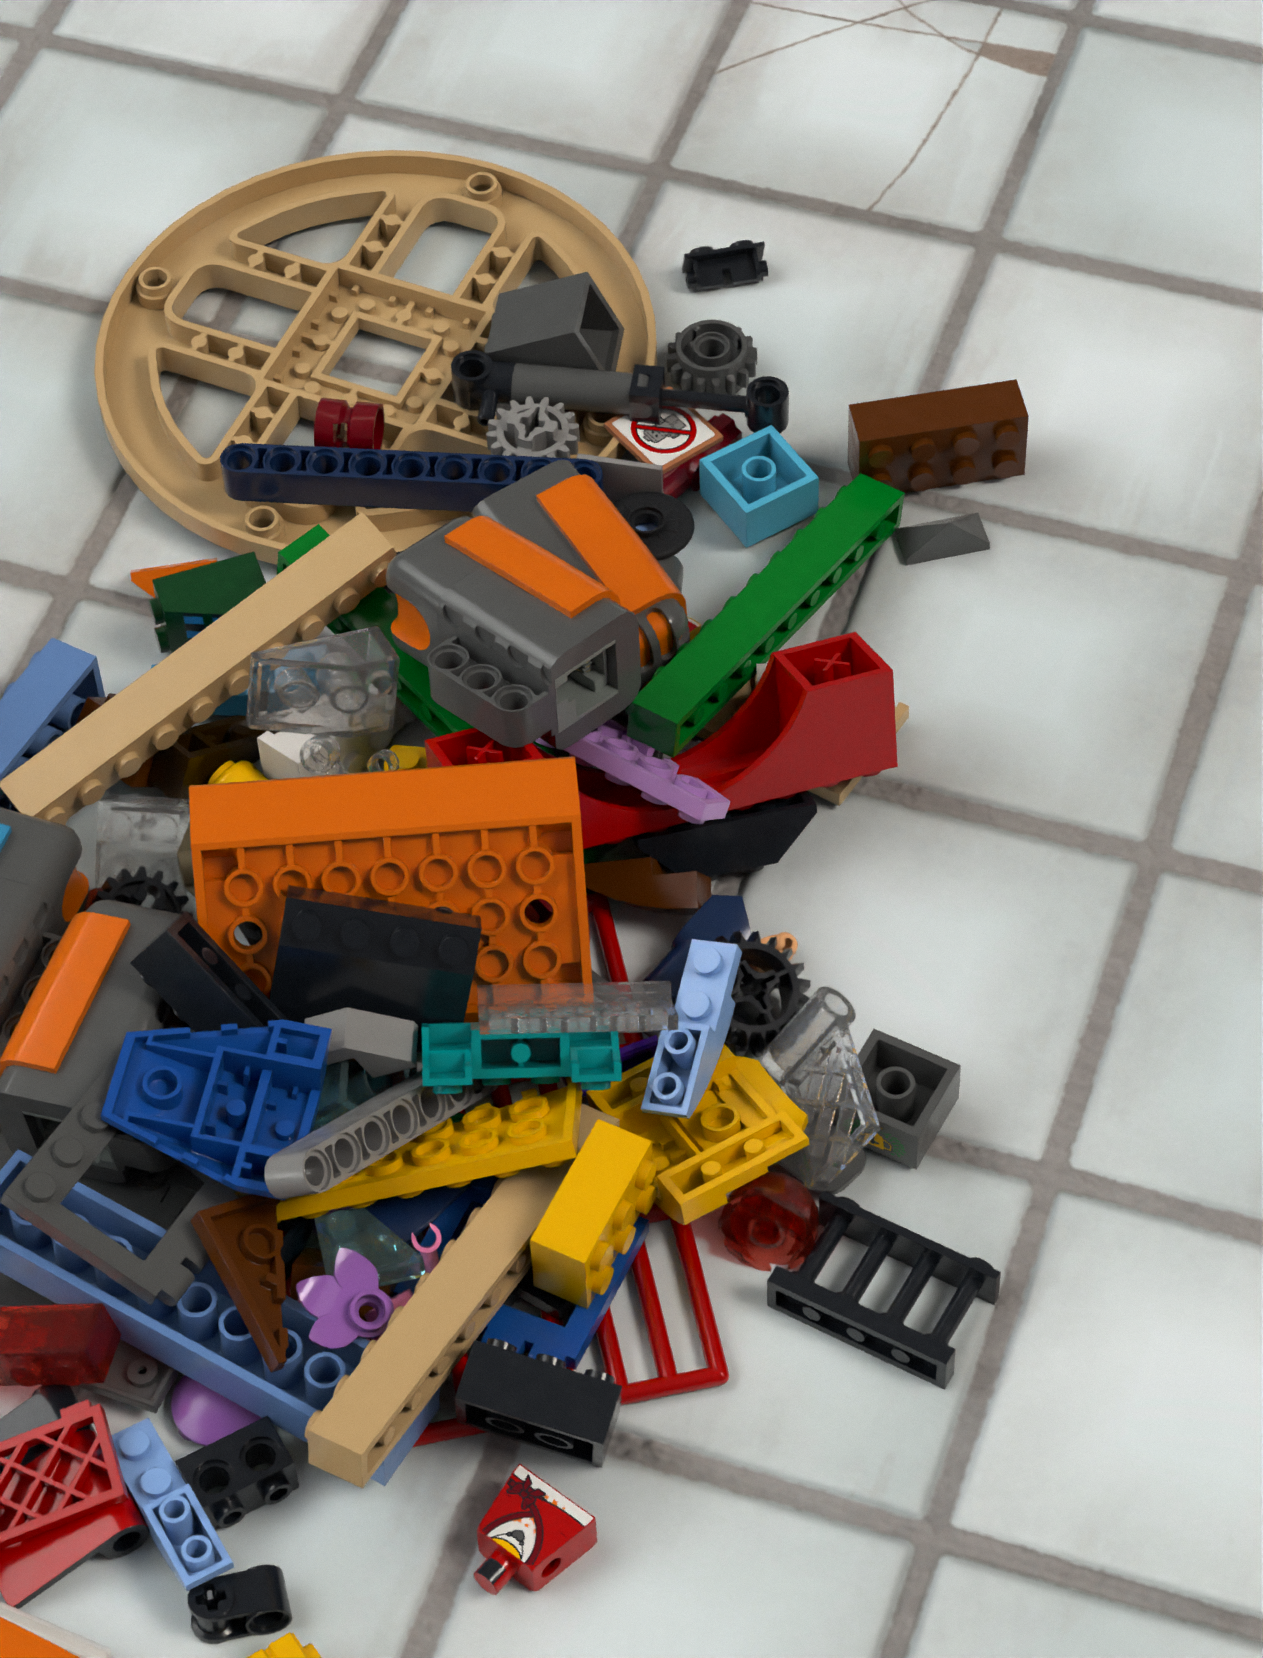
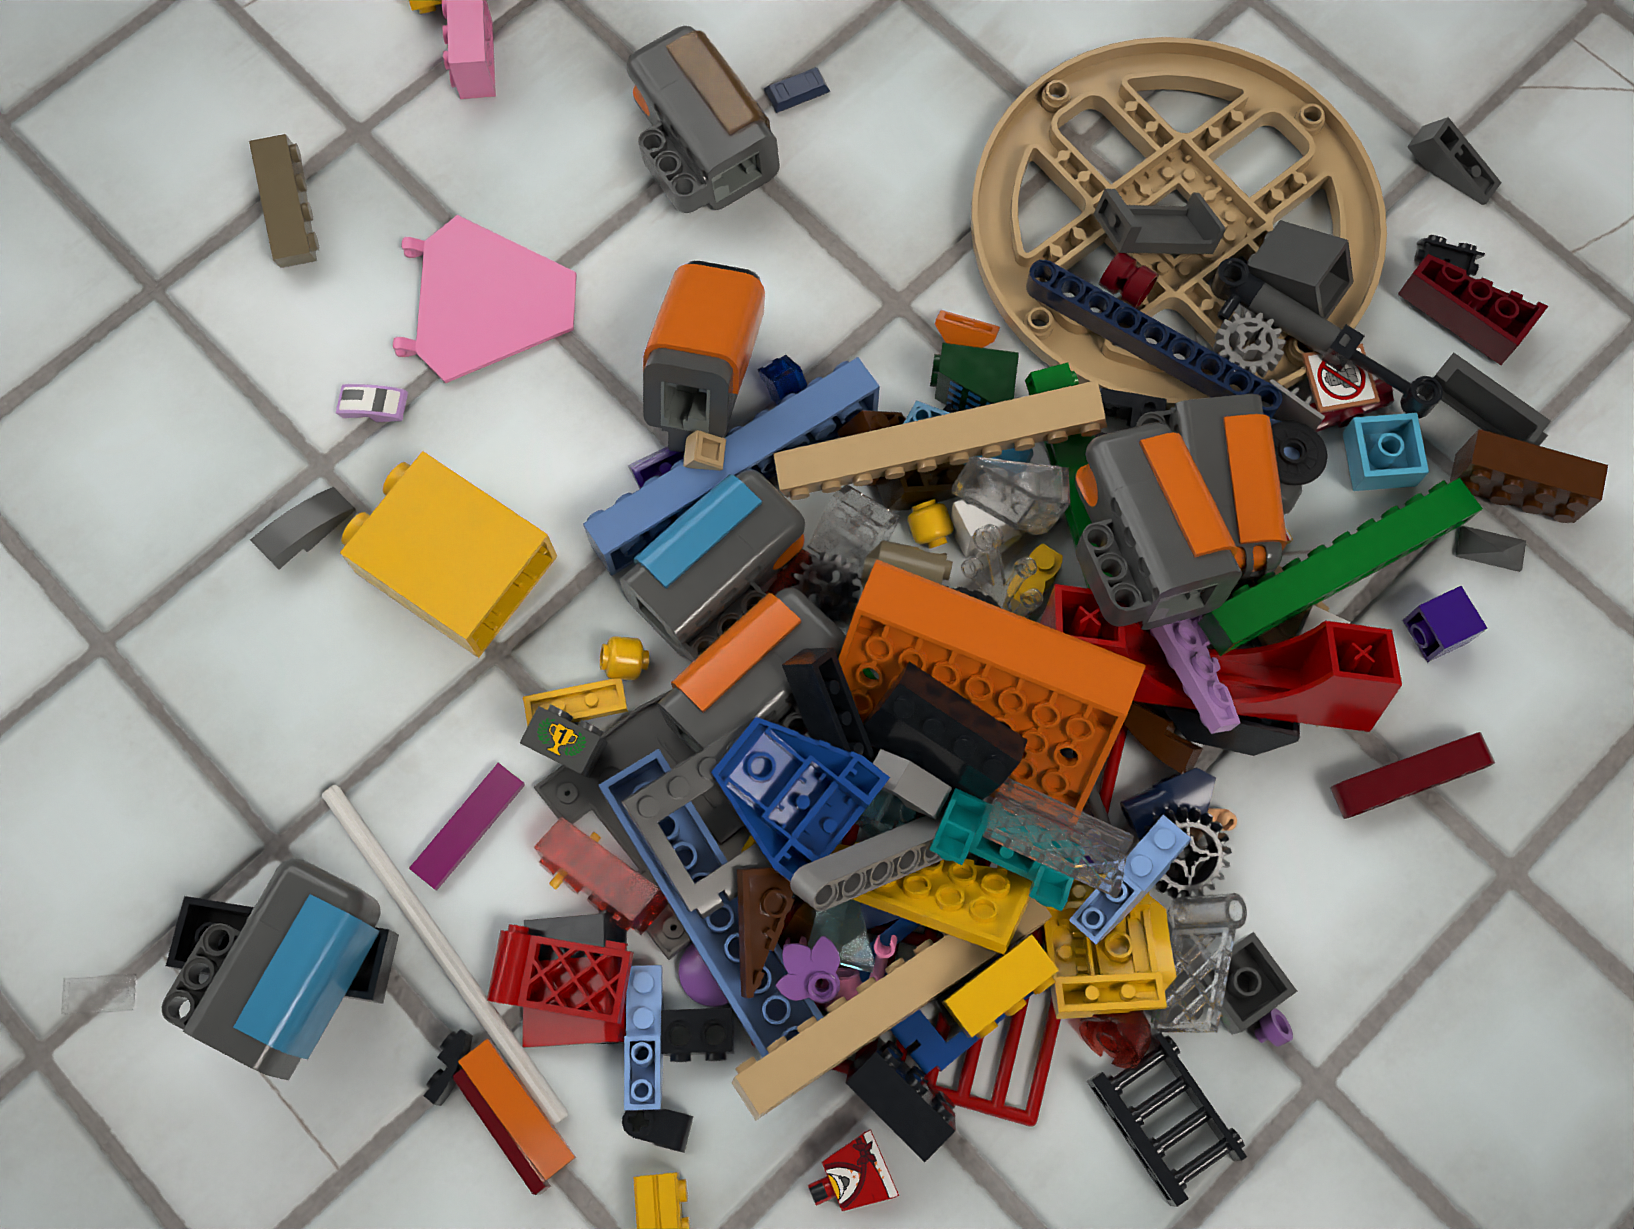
camera: 25 degrees right, 20 degrees up
(398, 353) = (1159, 228): none -> dark grey panel
(676, 168) = (1453, 159): none -> dark grey slope
(712, 358) = (1409, 316): dark grey gear -> none
(781, 303) = (1472, 307): none -> dark red wedge
(829, 380) = (1488, 402): none -> dark grey panel
(926, 628) = (1444, 623): none -> dark purple head
(961, 1134) = (1274, 1028): none -> medium lavender tile
(977, 801) = (1412, 775): none -> dark red beam

